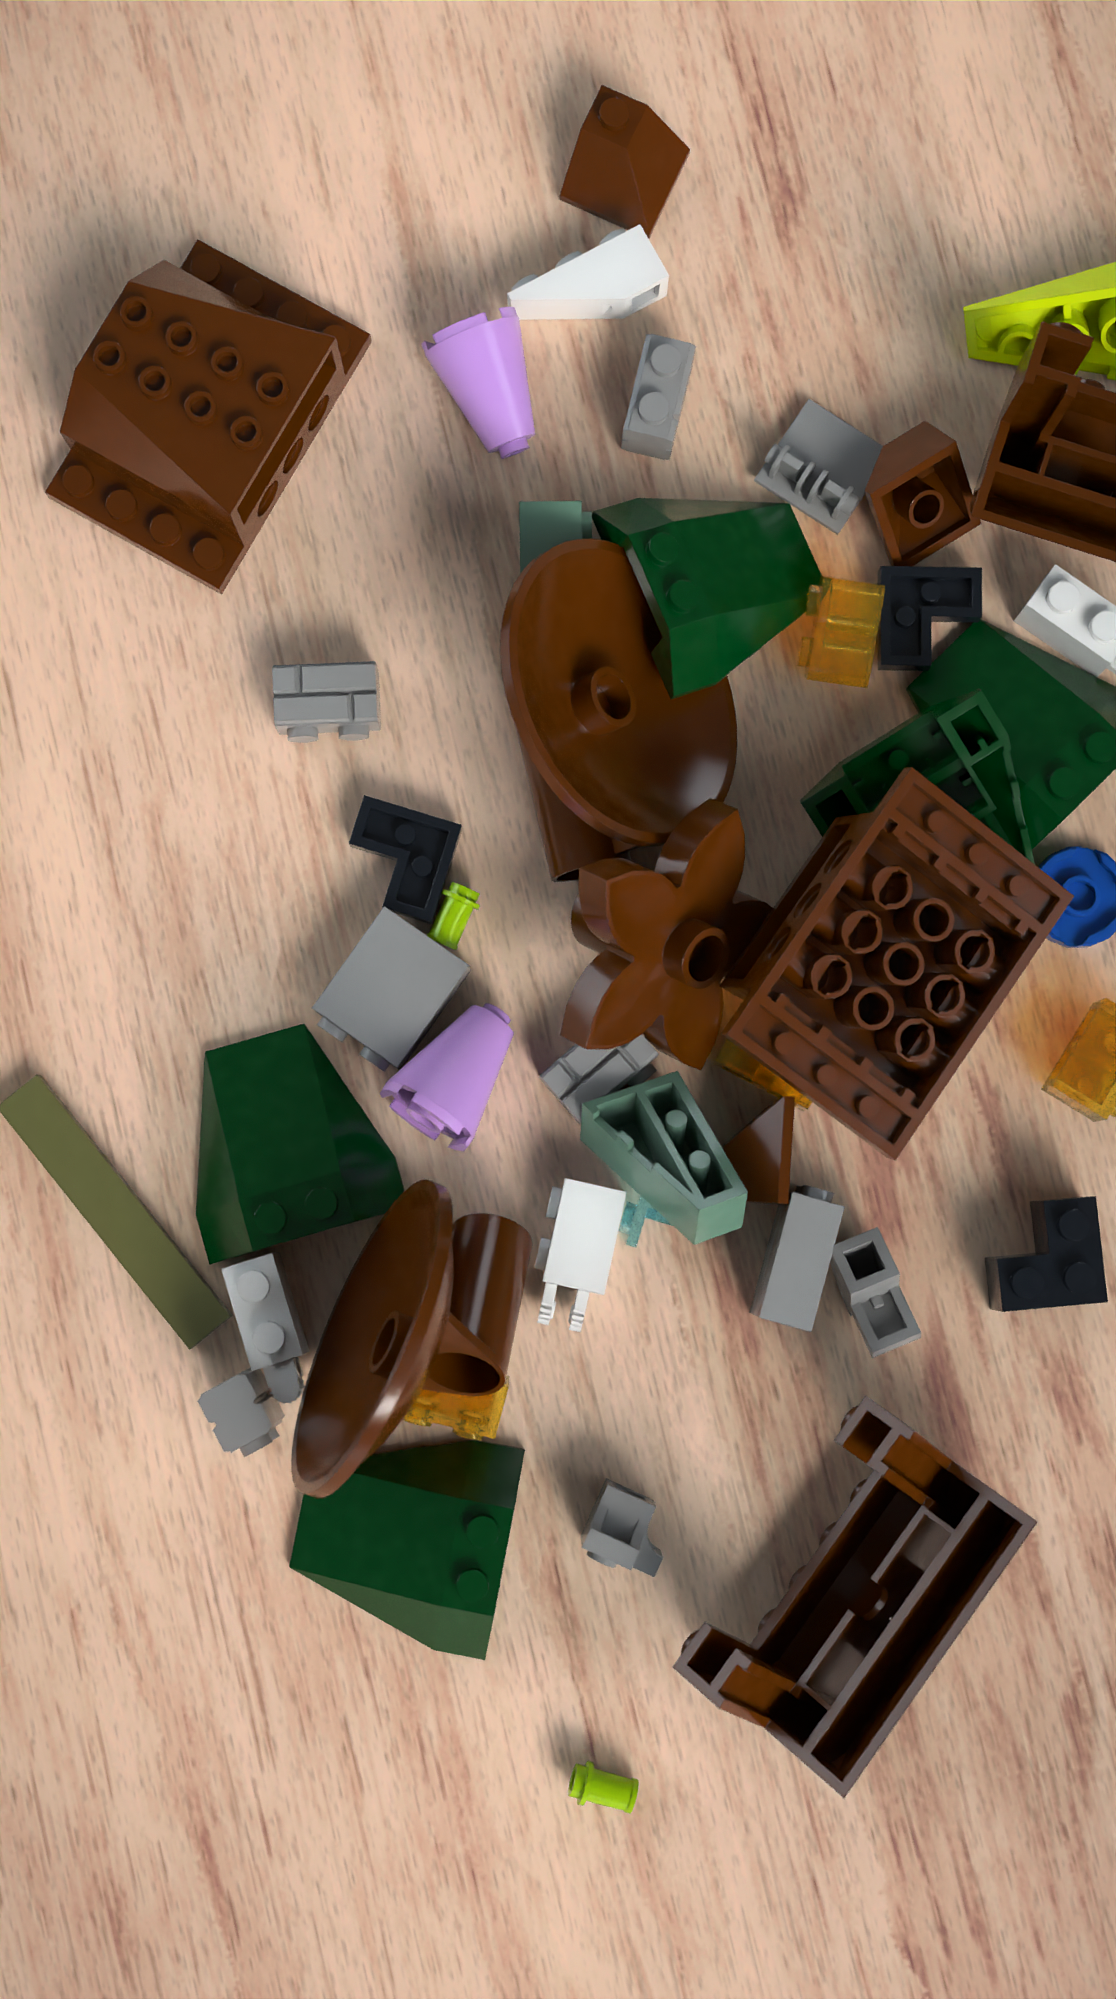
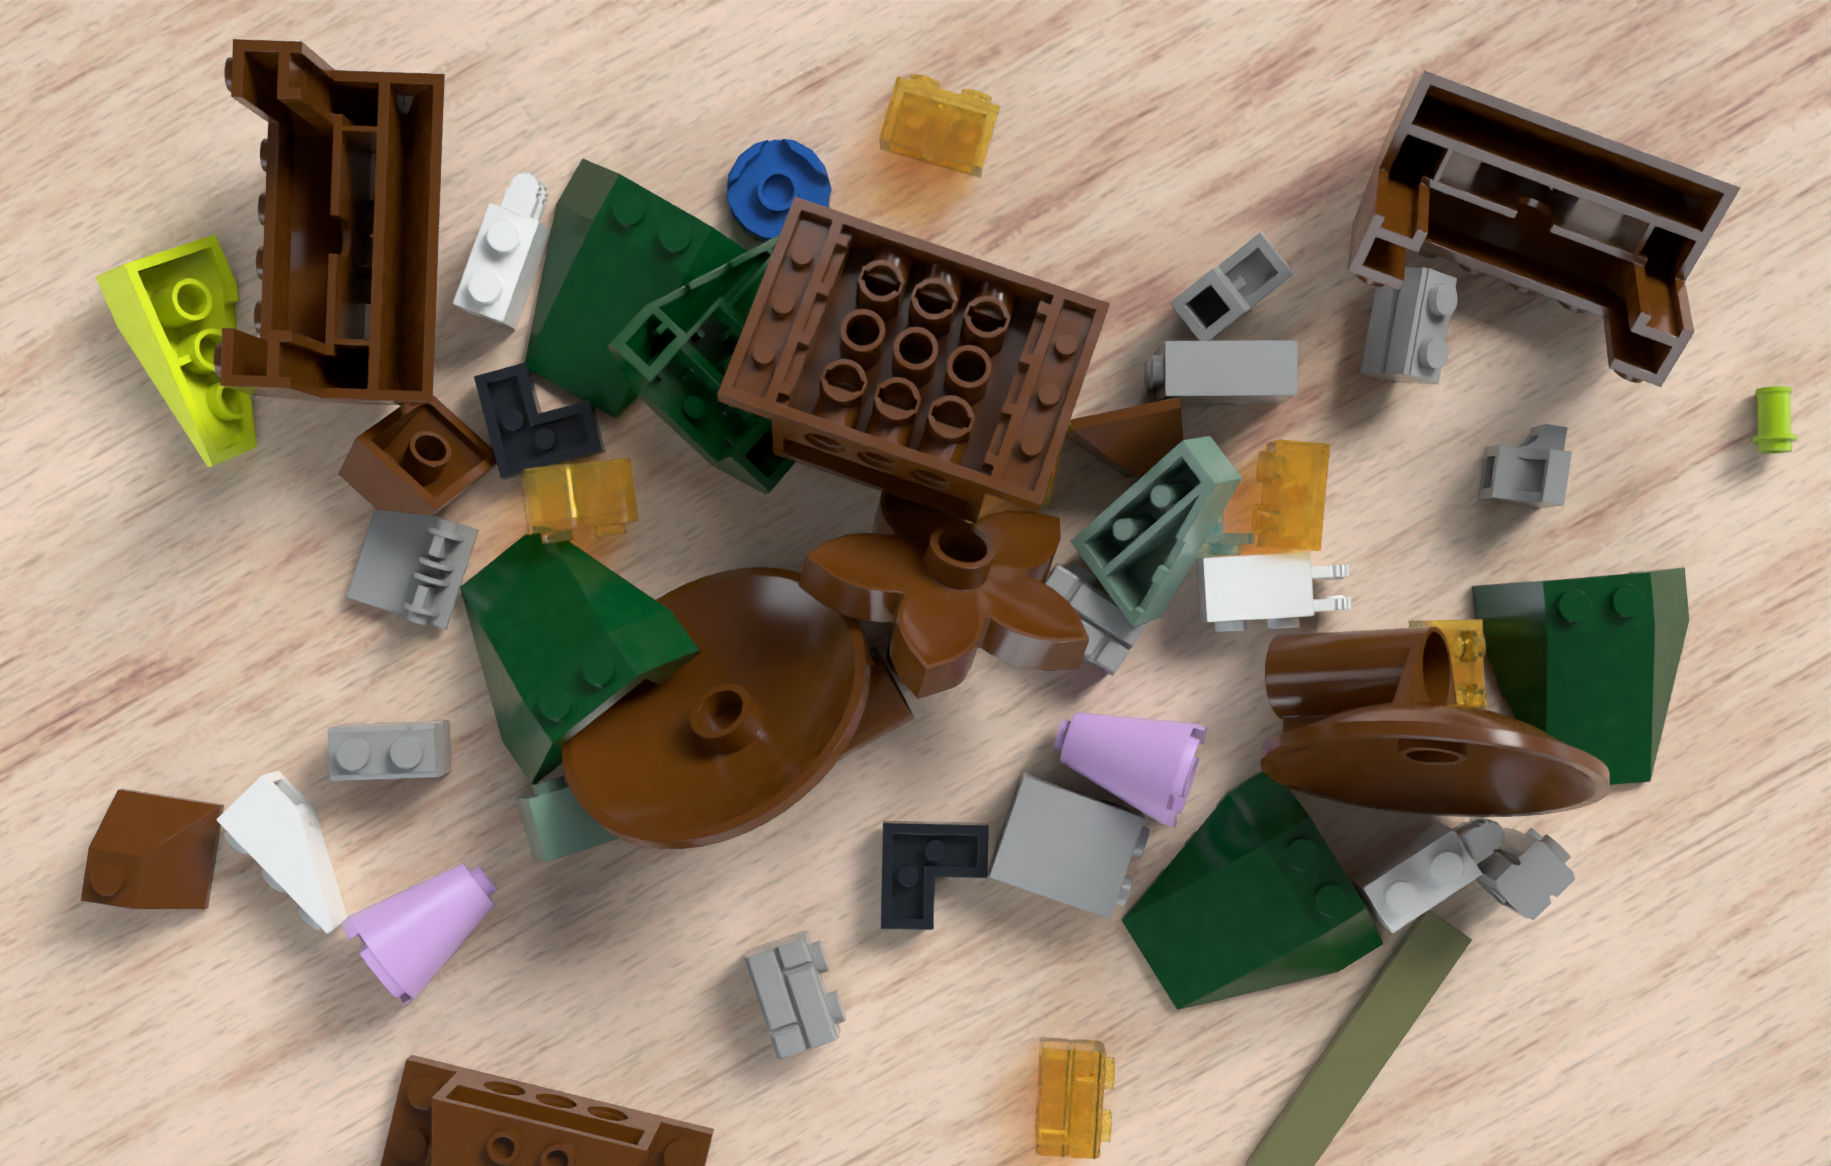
camera: 105 degrees left, 5 degrees up
(154, 927) = (1071, 1098): none -> clear yellow brick
(453, 915) = (974, 804): lime pin -> none
(659, 1296) = (1292, 495): none -> clear yellow brick
(791, 1454) = (1410, 328): none -> light grey brick
(1065, 1265) = (1150, 109): black brick -> none

